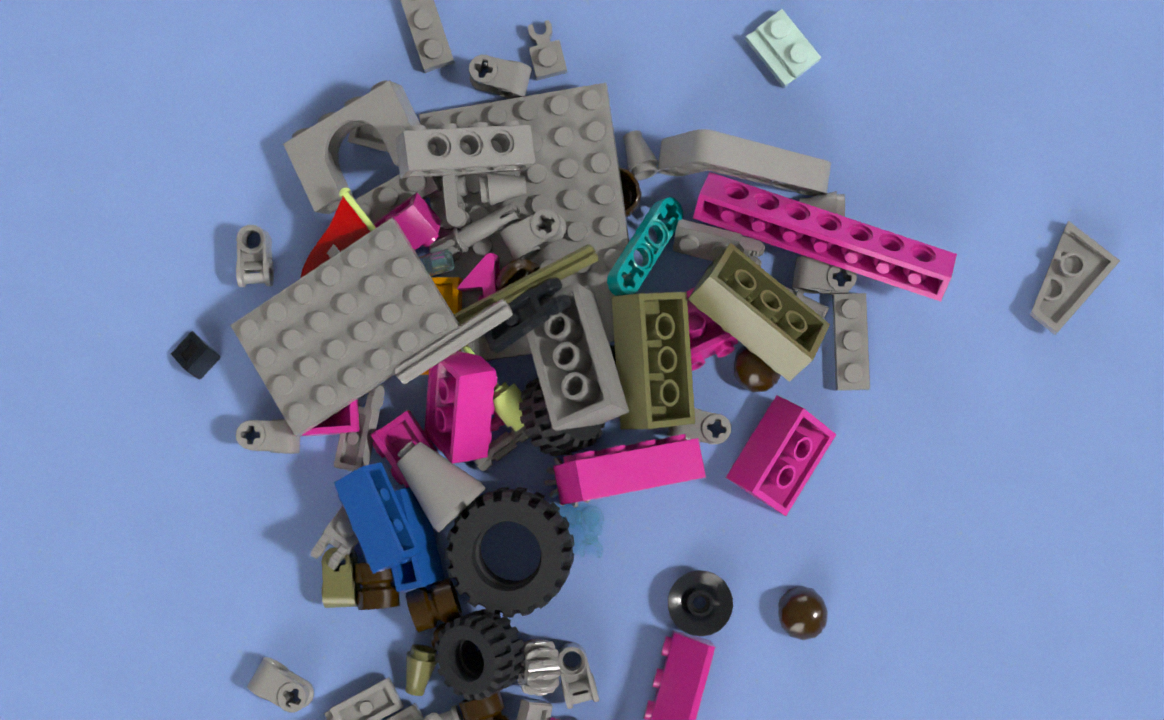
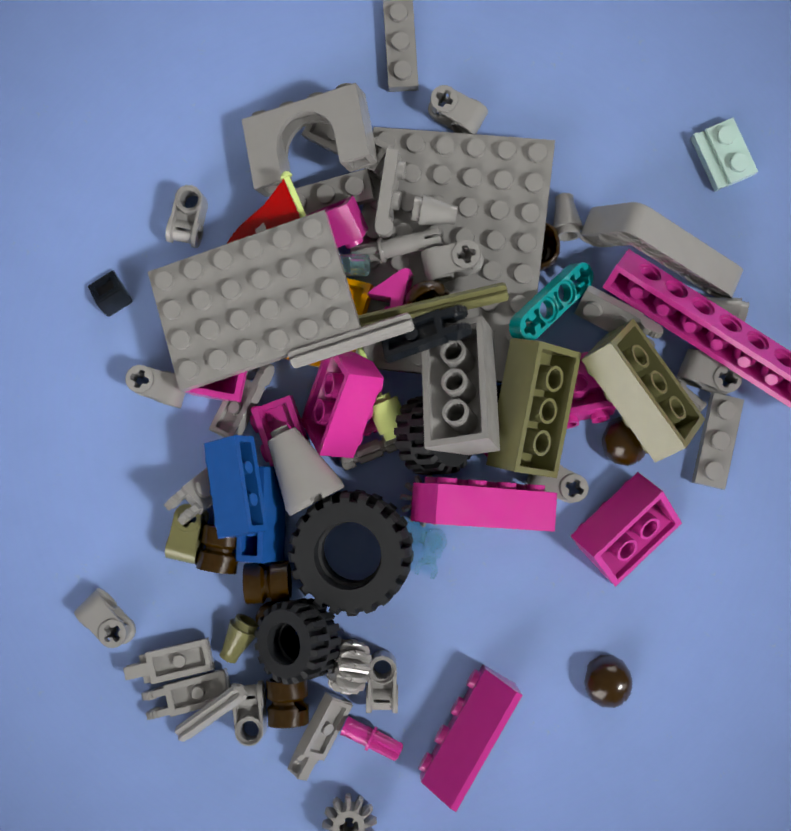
camera: 10 degrees right, 0 degrees up
(417, 160) = (363, 163): light grey brick -> none
(546, 55) = (504, 104): light grey plate -> none
(703, 620) = (527, 658): black dish -> none

